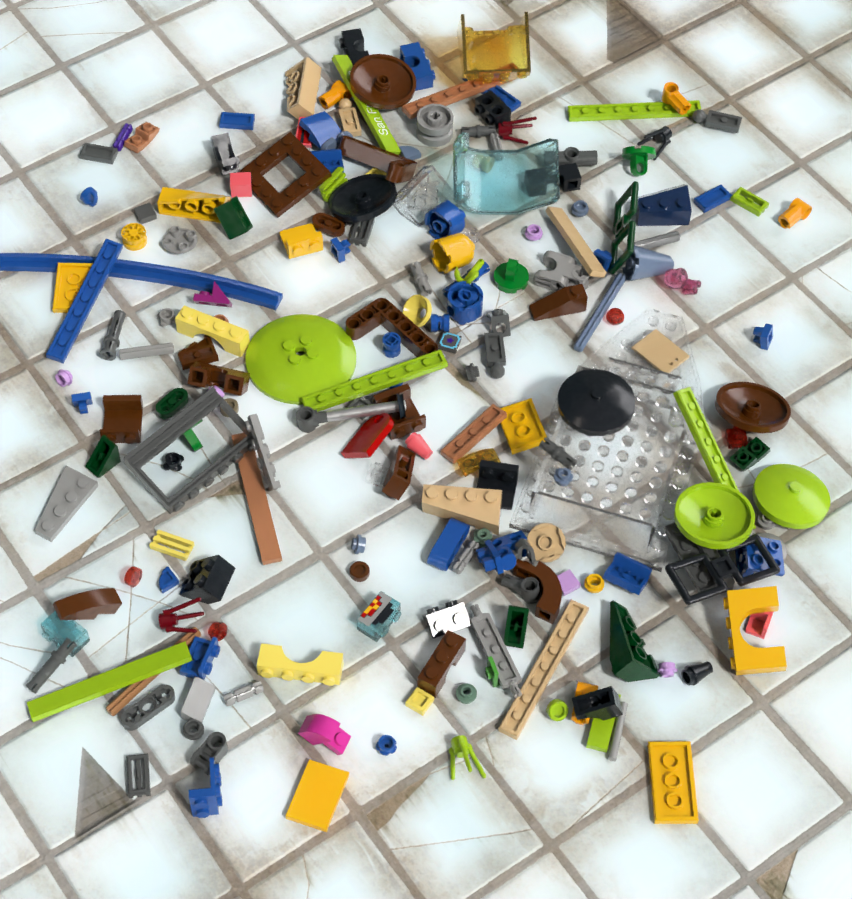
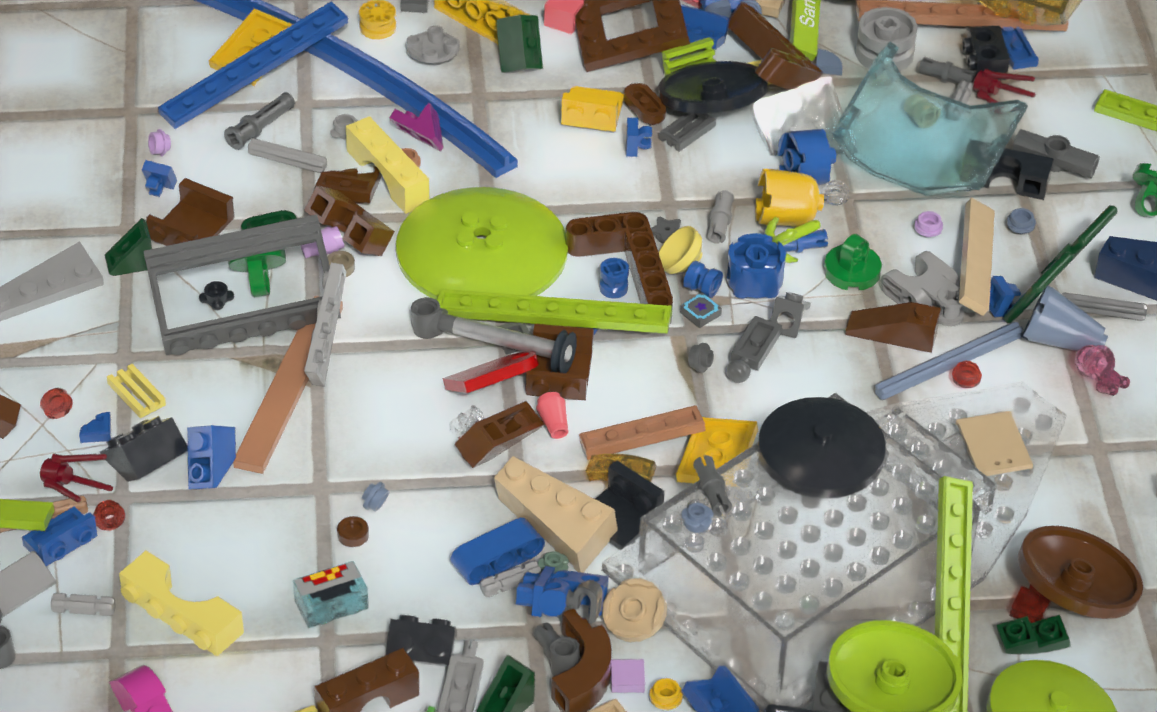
camera: 30 degrees right, 10 degrees down
(250, 566) = (209, 455): none -> blue slope
(398, 296) = (665, 228): none -> dark grey plate

